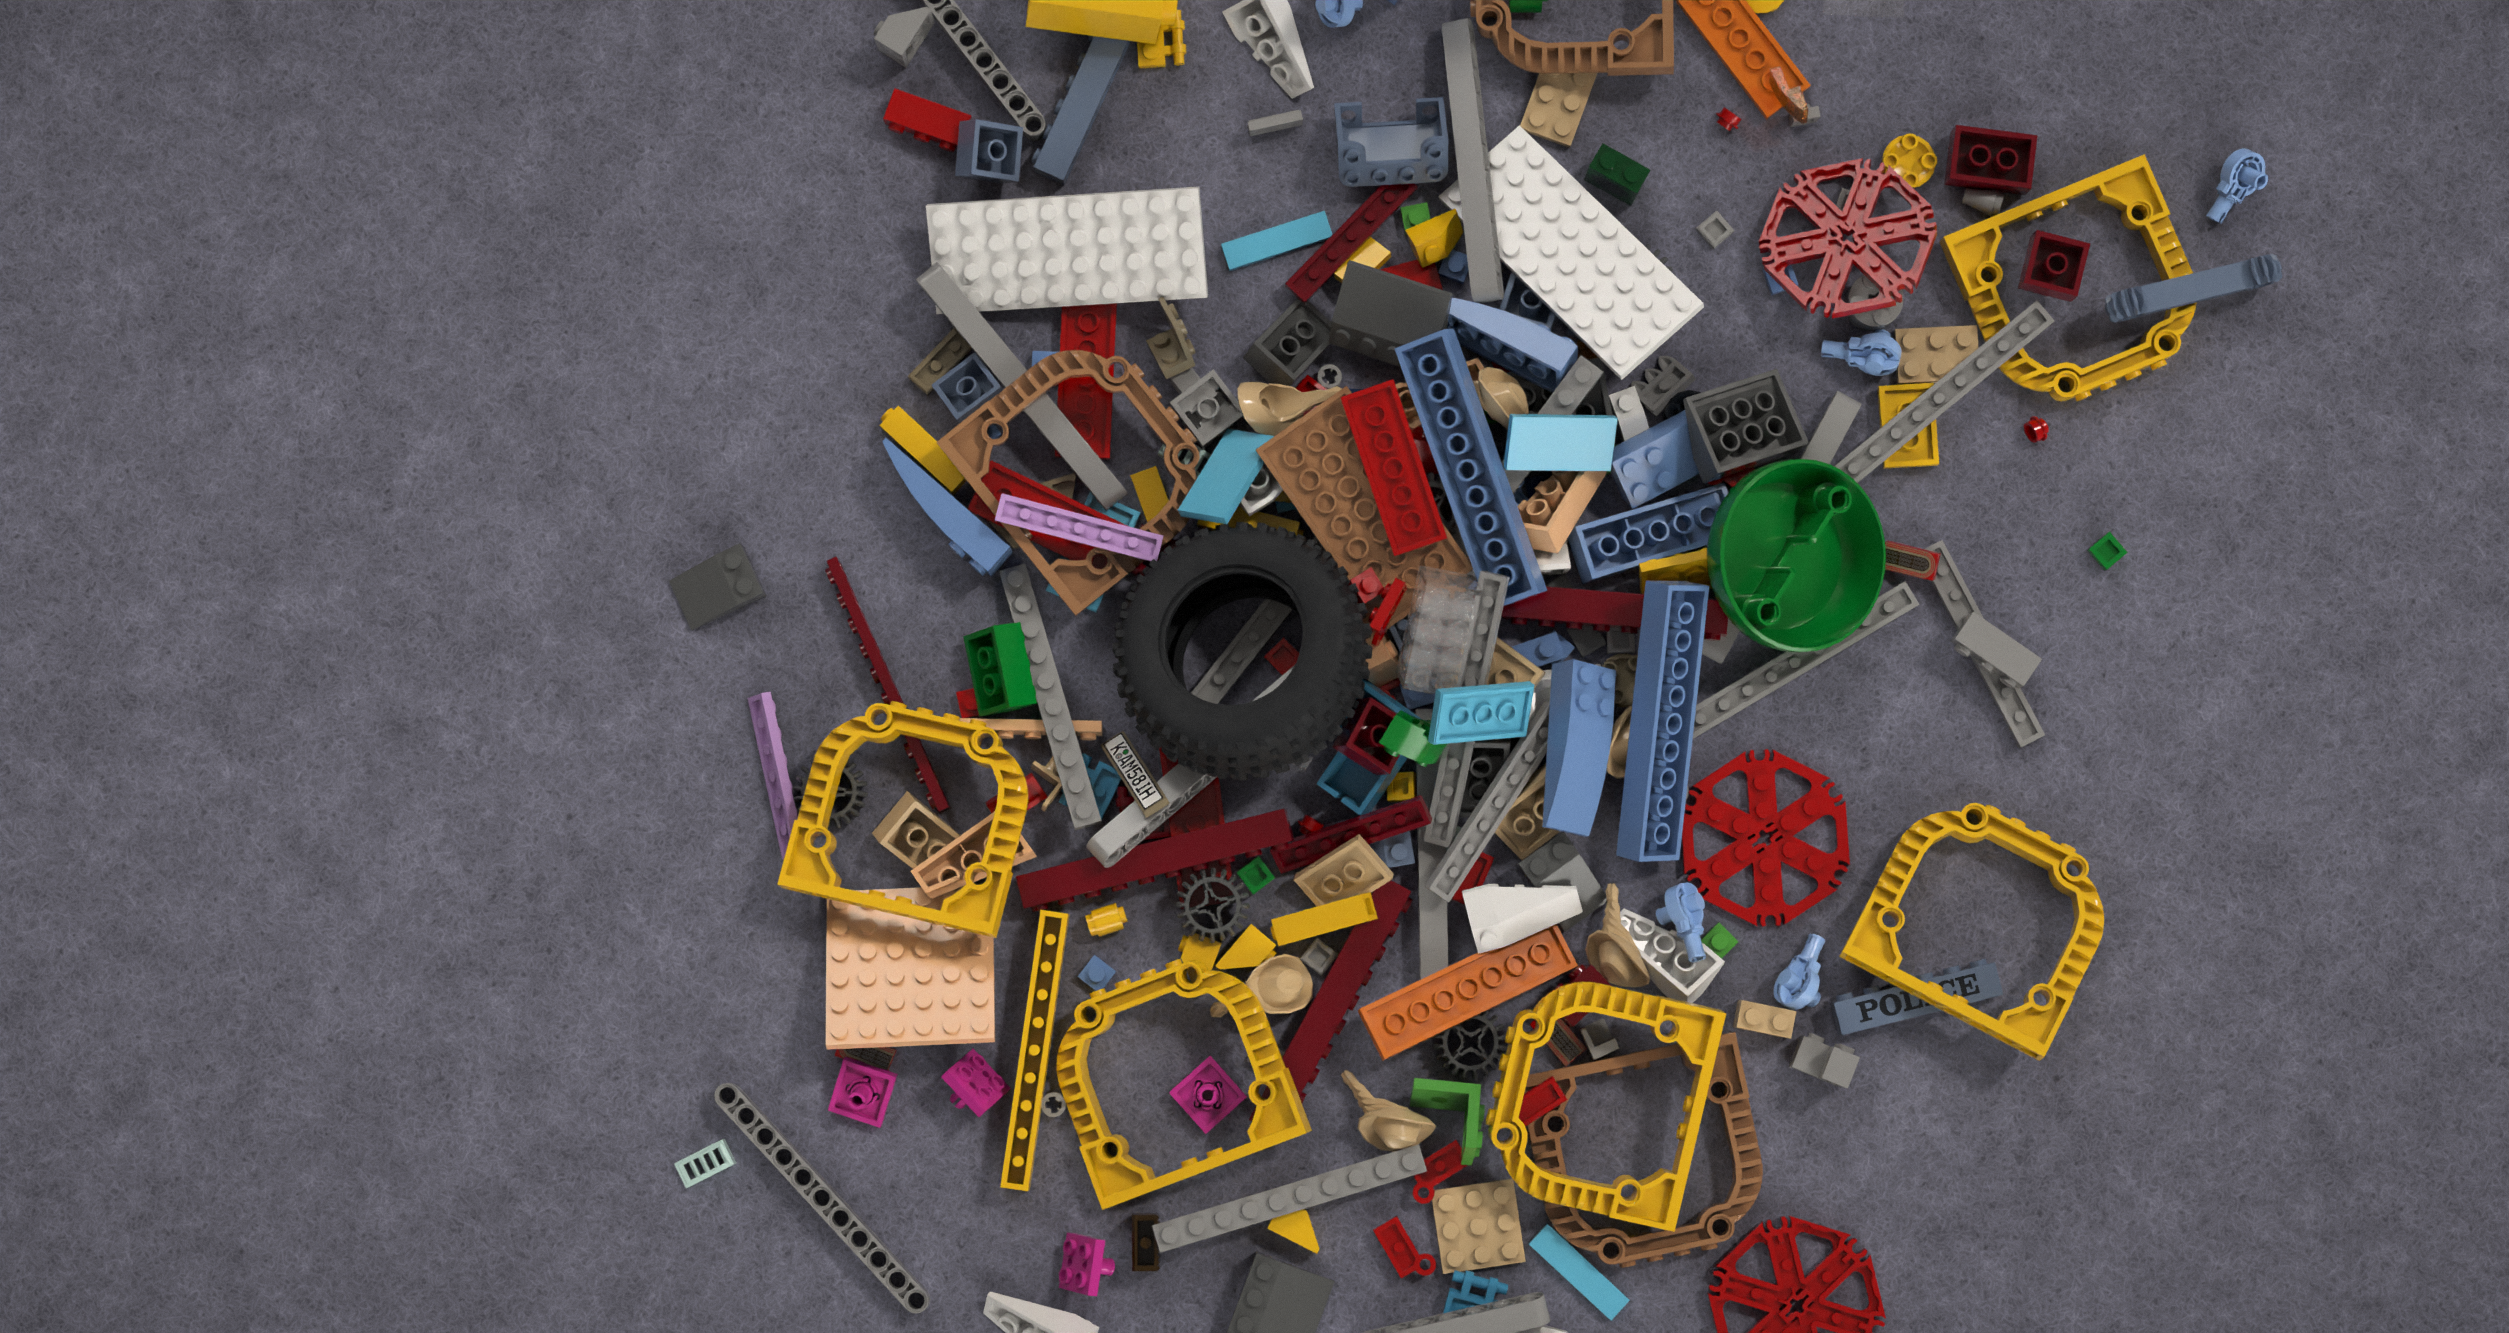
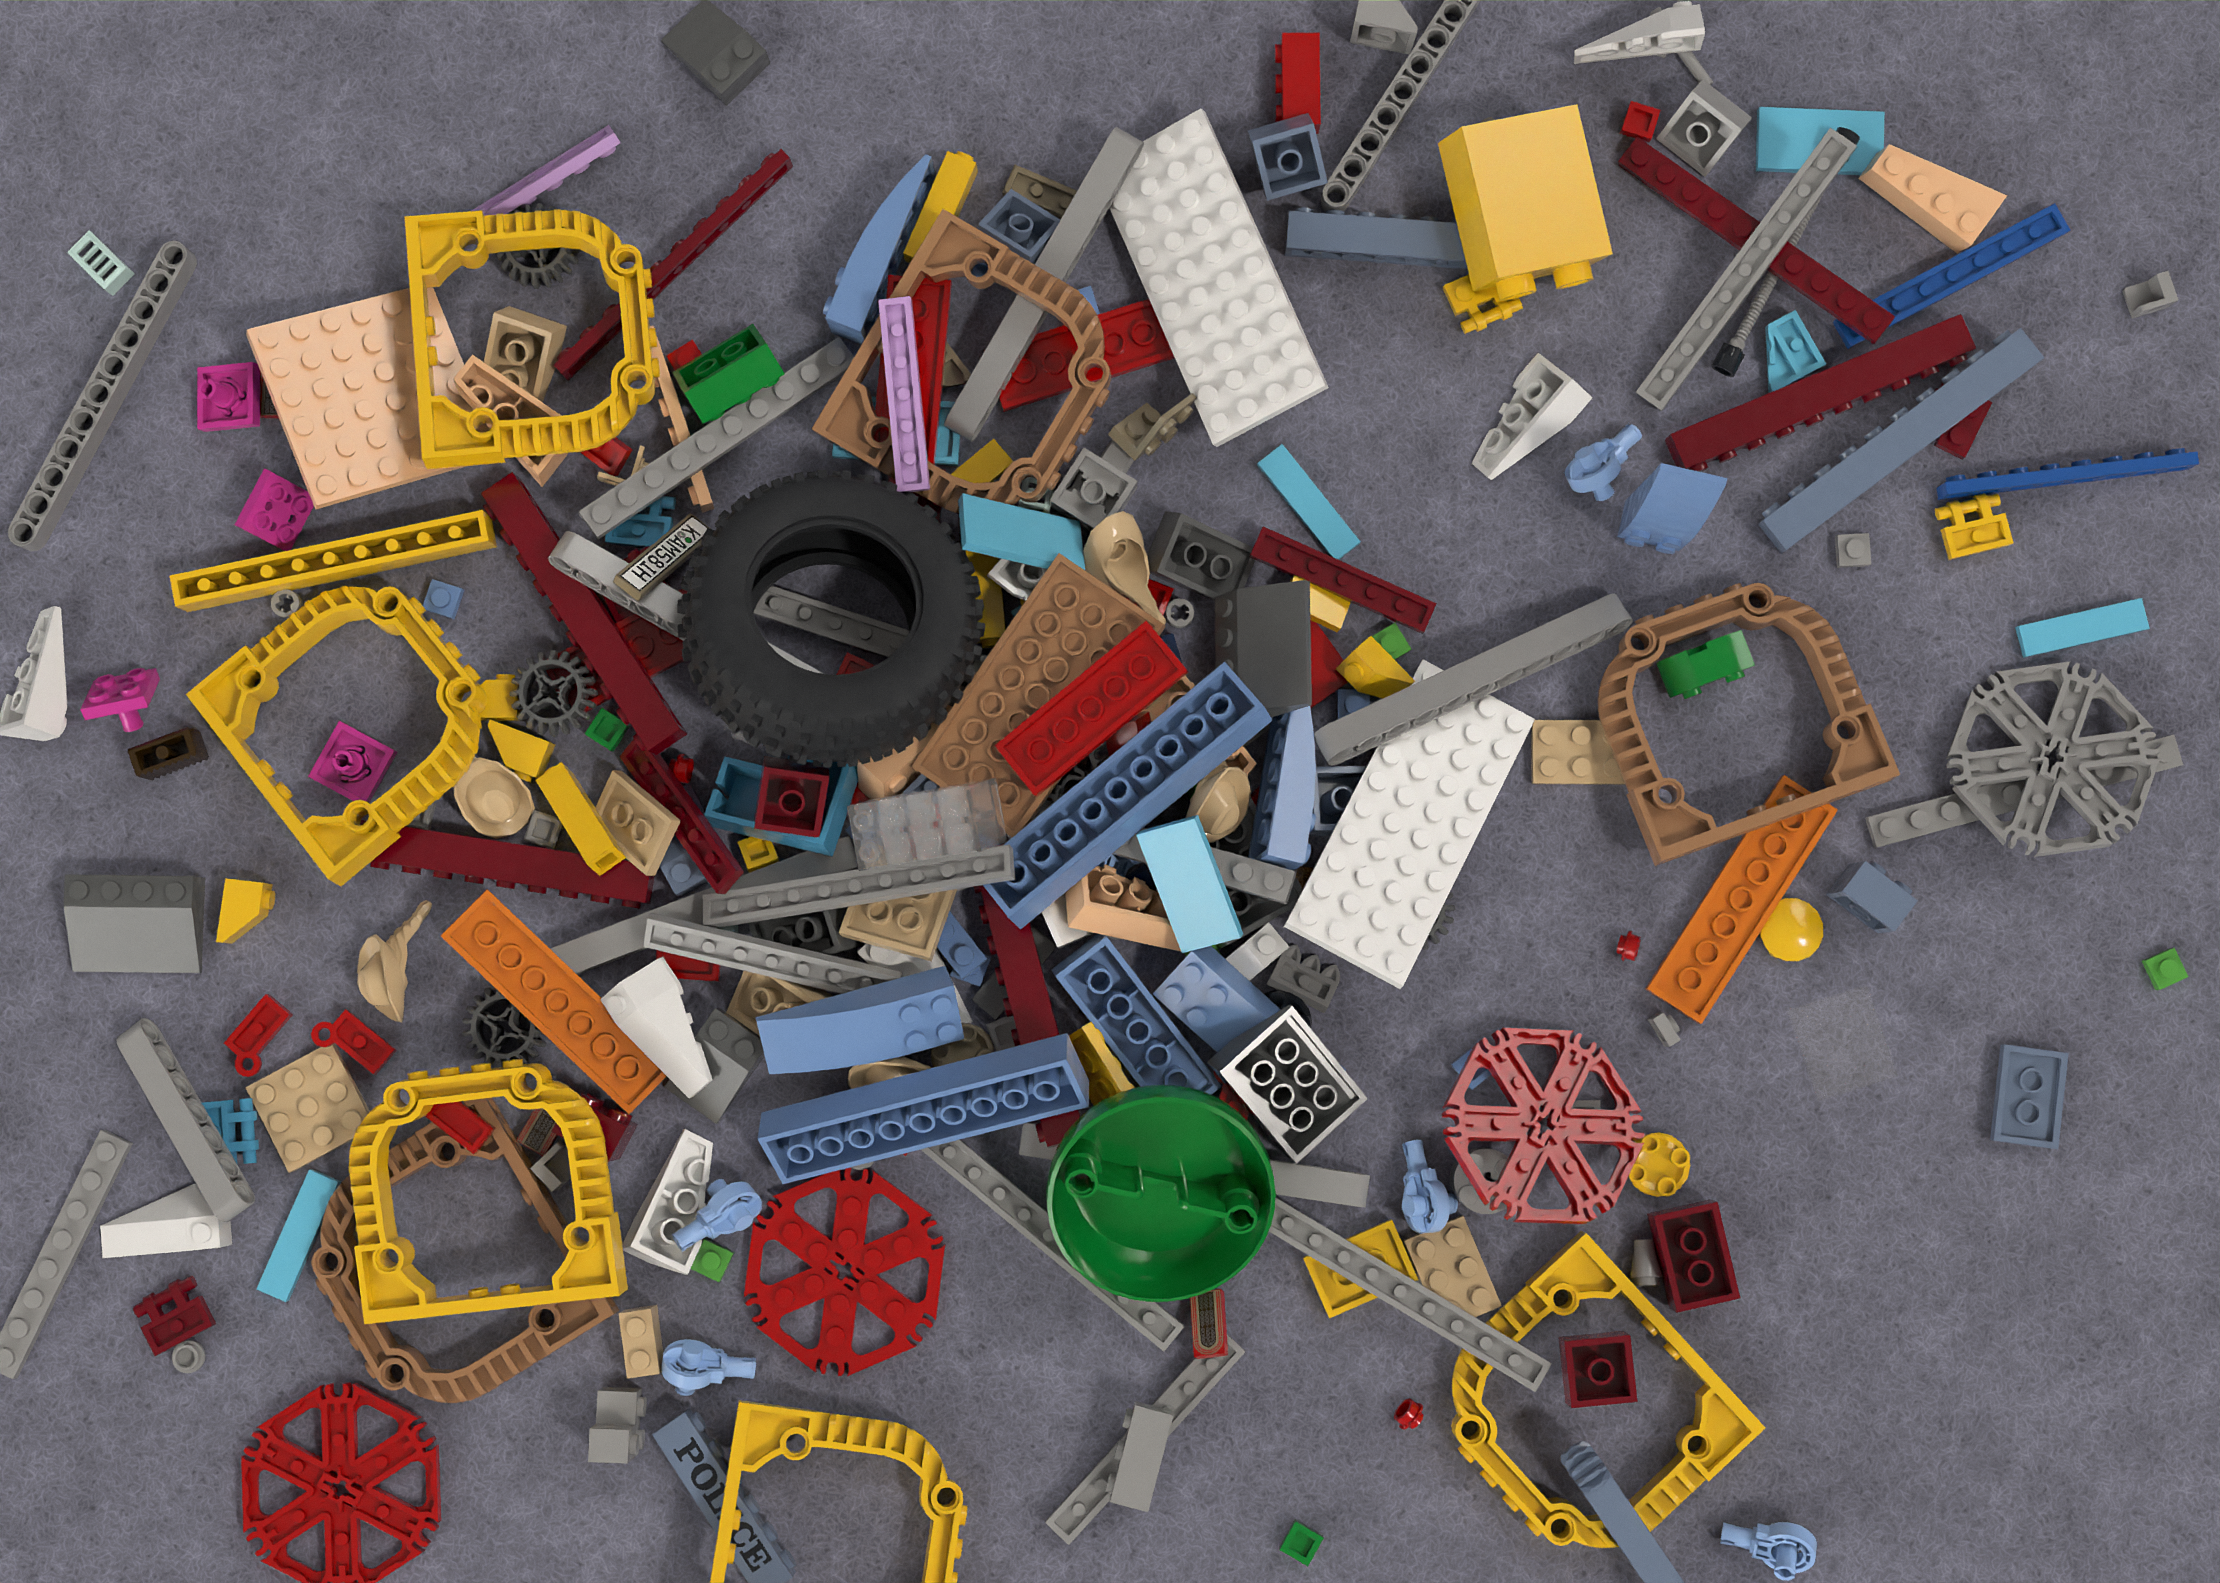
camera: 75 degrees right, 0 degrees up
(1106, 920) = (502, 587): yellow brick -> none
(1275, 122) = (1436, 452): light grey tile -> none
(1289, 1198) = (263, 889): light grey plate -> none
(1368, 585) = (952, 729): red plate -> none
(1381, 617) = (922, 756): red hinge -> none
(1394, 149) = (1453, 586): sand blue windscreen -> none
(1410, 739) = (800, 841): green brick -> none
(1455, 1097) = (438, 1033): bright green bracket -> none
(1481, 712) = (854, 903): medium azure tile -> none
(1614, 950) = (658, 1146): tan hat -> none
(1616, 174) = (1518, 843): dark green brick -> none
(1715, 229) = (1500, 976): light grey tile -> none
(1790, 99) = (1676, 1005): clear orange slope -> none

